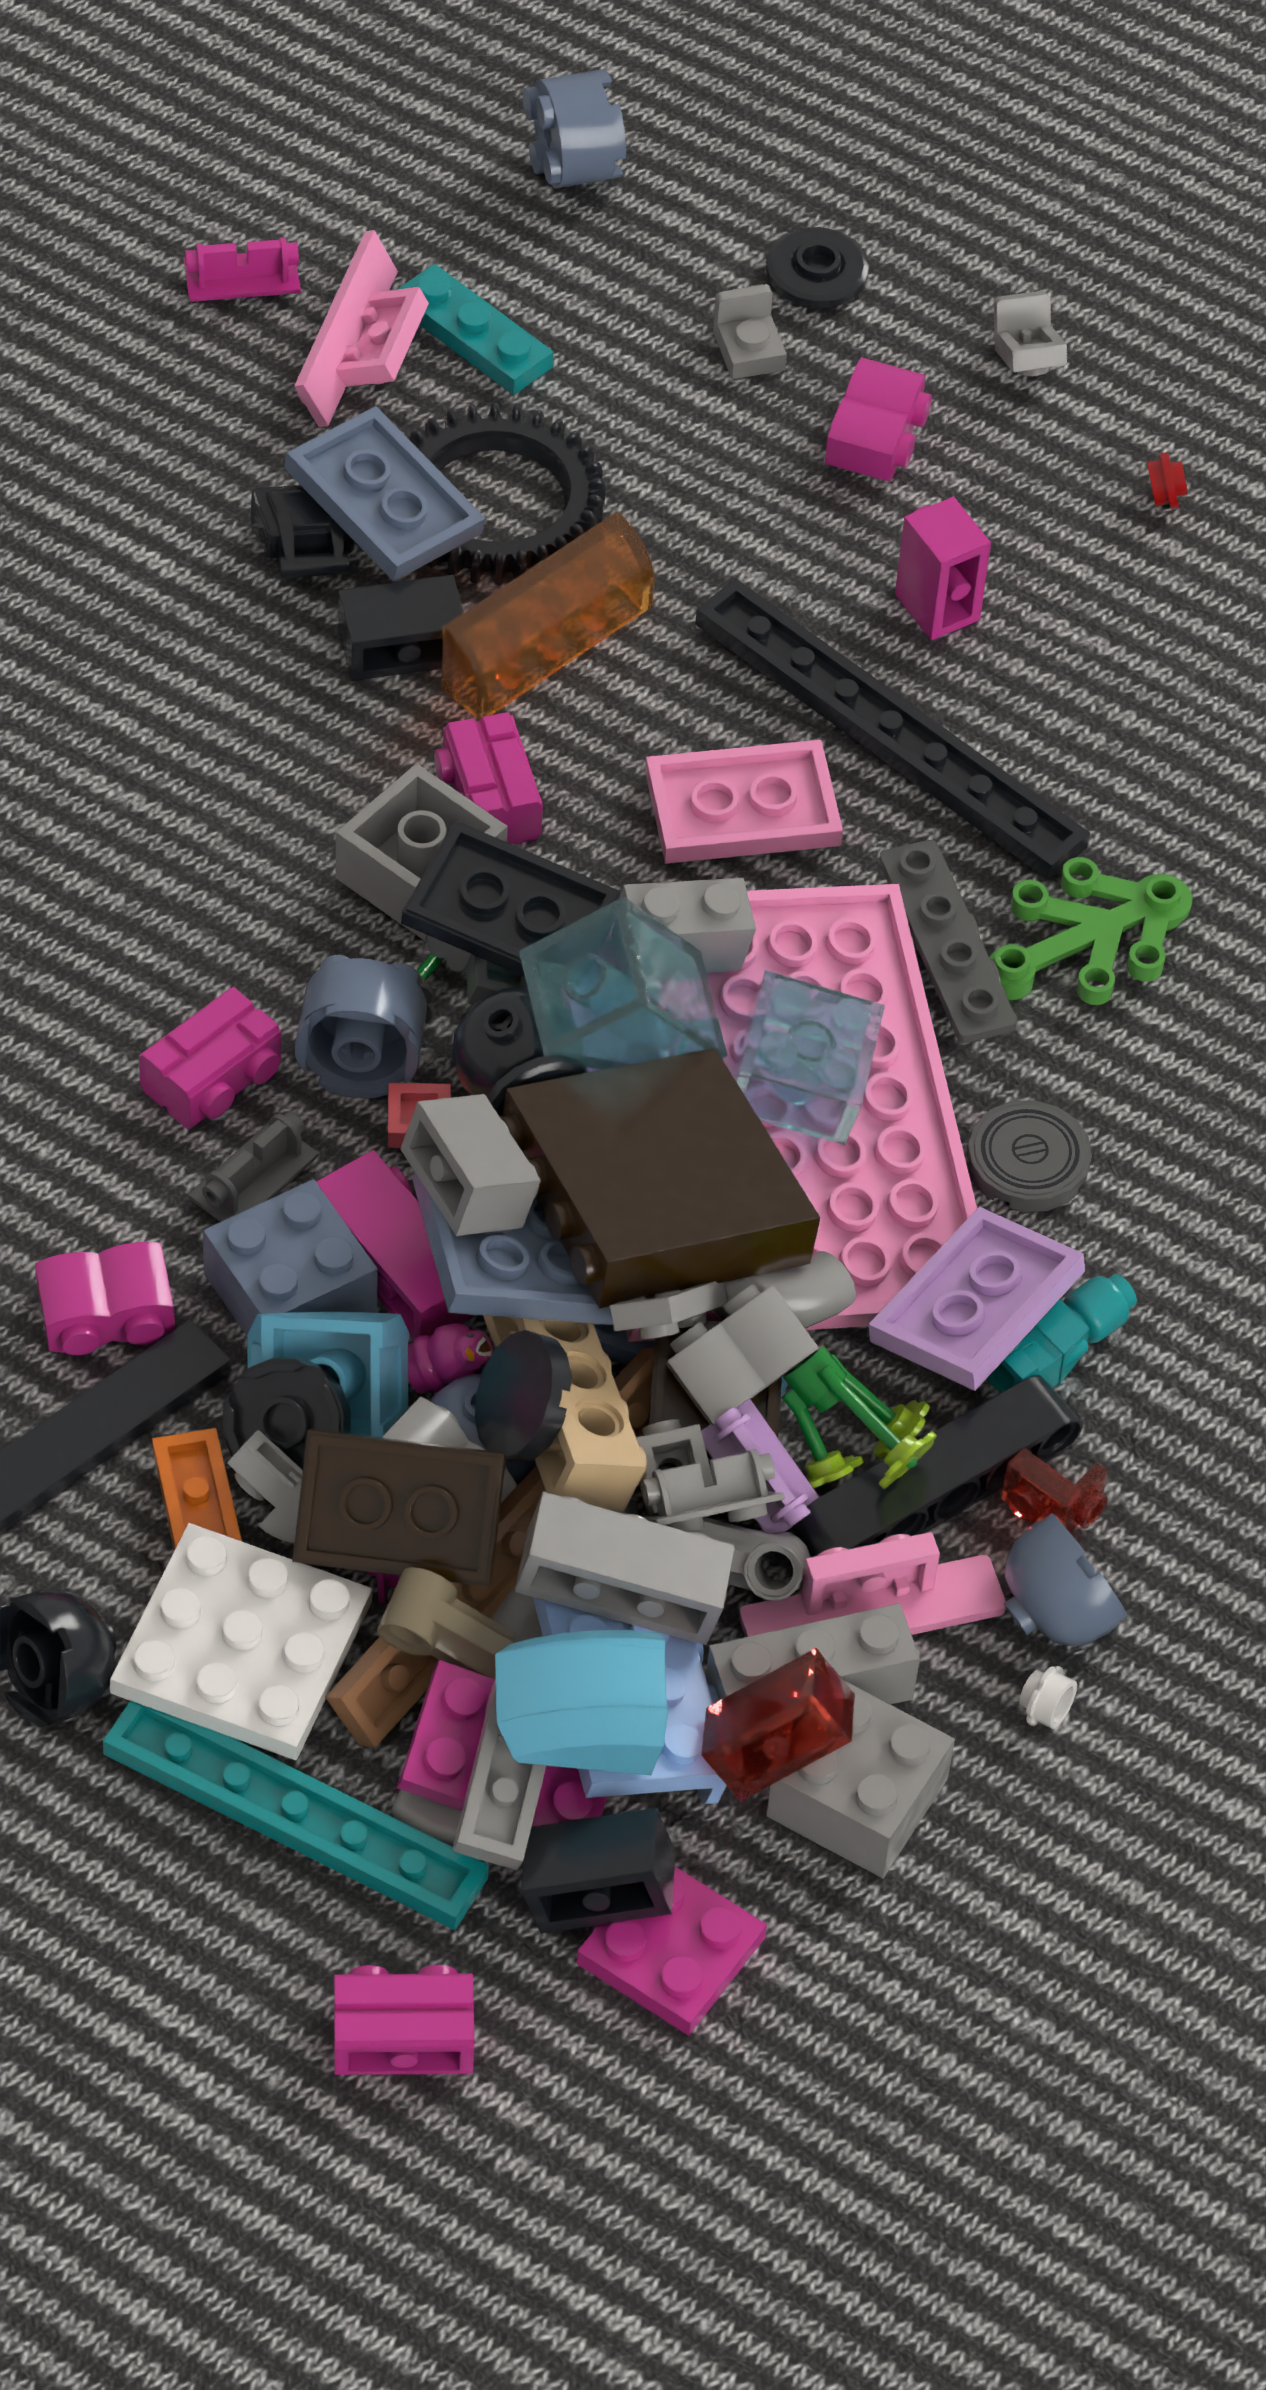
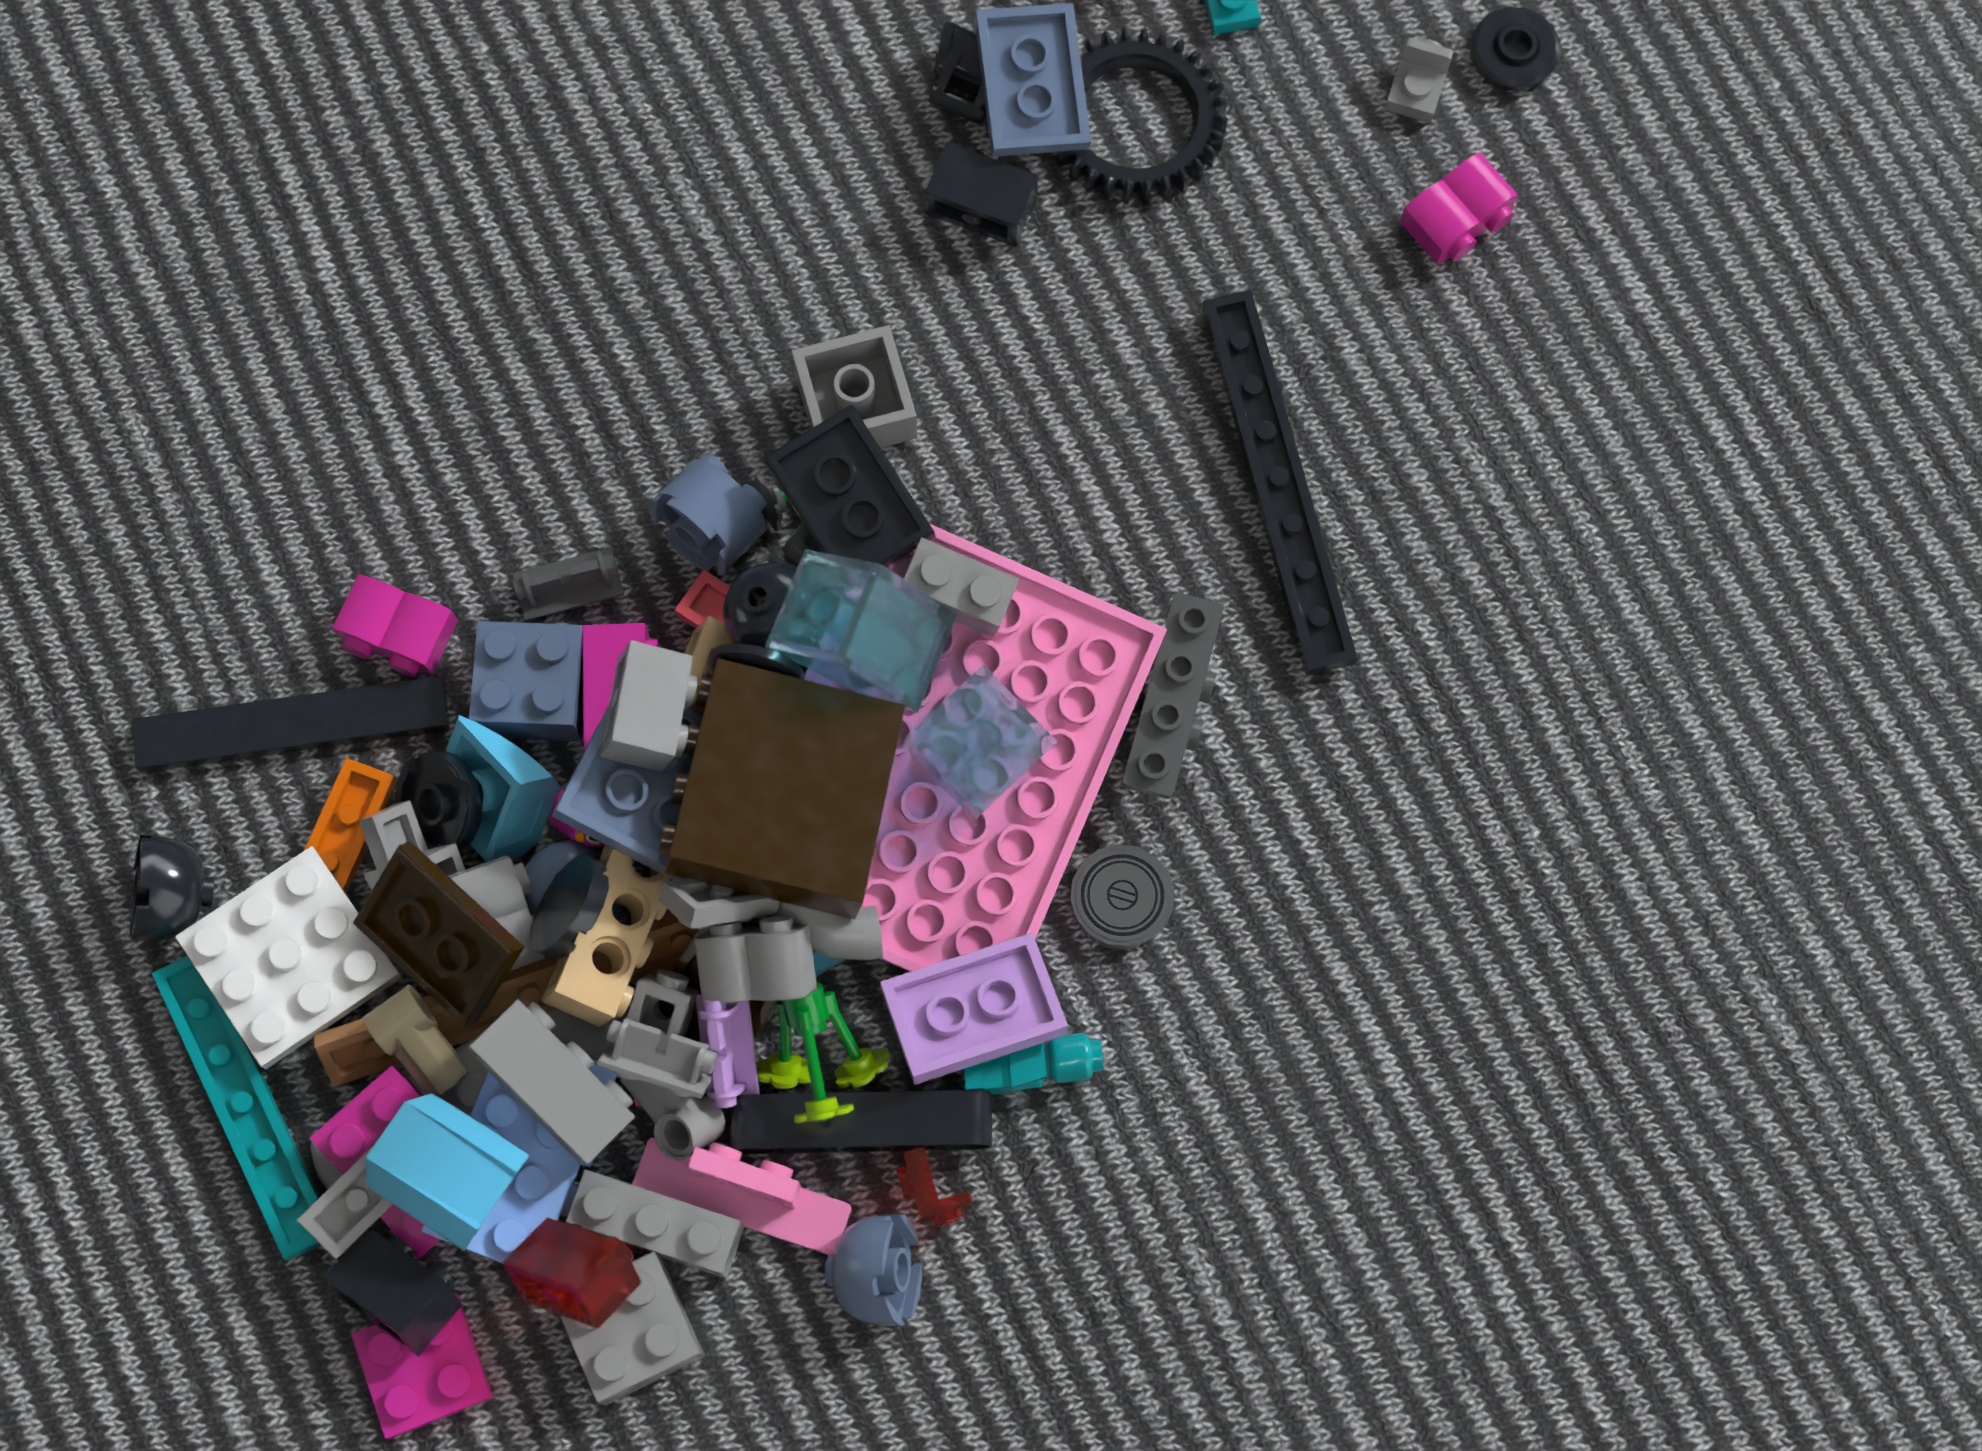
camera: 35 degrees right, 20 degrees up
(211, 1059) = (598, 476): dark pink brick -> none
(403, 2022) = (197, 1314): dark pink brick -> none
(492, 770) = (952, 359): dark pink brick -> none
(547, 617) = (1087, 247): clear orange brick -> none
(743, 801) = (1125, 480): bright pink plate -> none
(942, 568) = (1404, 371): dark pink brick -> none
(1026, 335) = (1629, 198): light grey bracket -> none
(1048, 1697) = (811, 1344): white plate -> none
(1094, 927) = (1308, 738): bright green plant -> none
(1167, 481) = (1643, 385): red plate -> none

